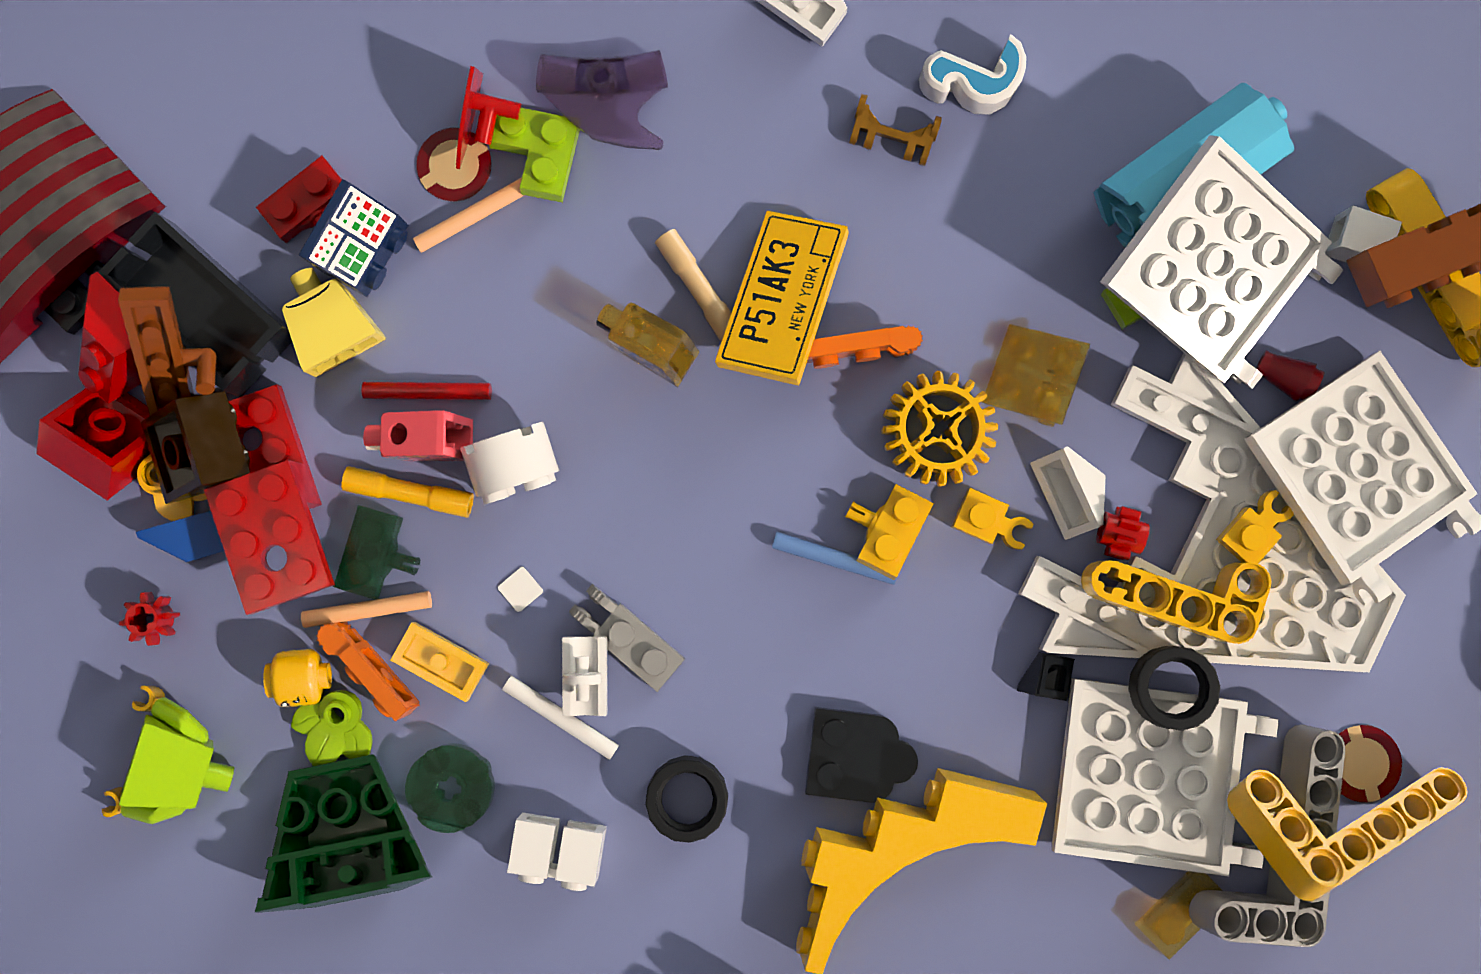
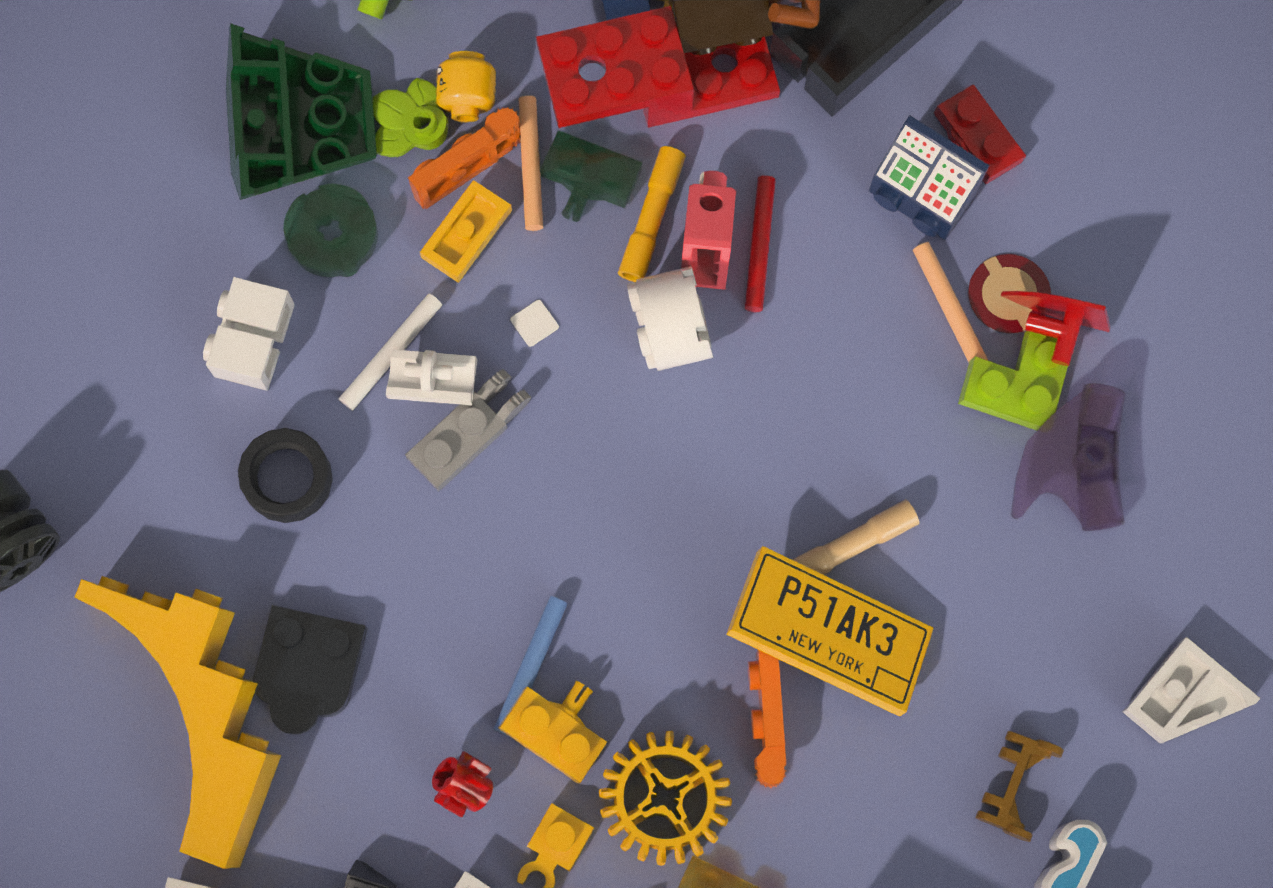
camera: 95 degrees right, 10 degrees down
(327, 323) = (840, 146): light yellow torso -> none
(649, 341) = (791, 480): clear yellow torso -> none
(947, 605) = (462, 784): none -> red gear

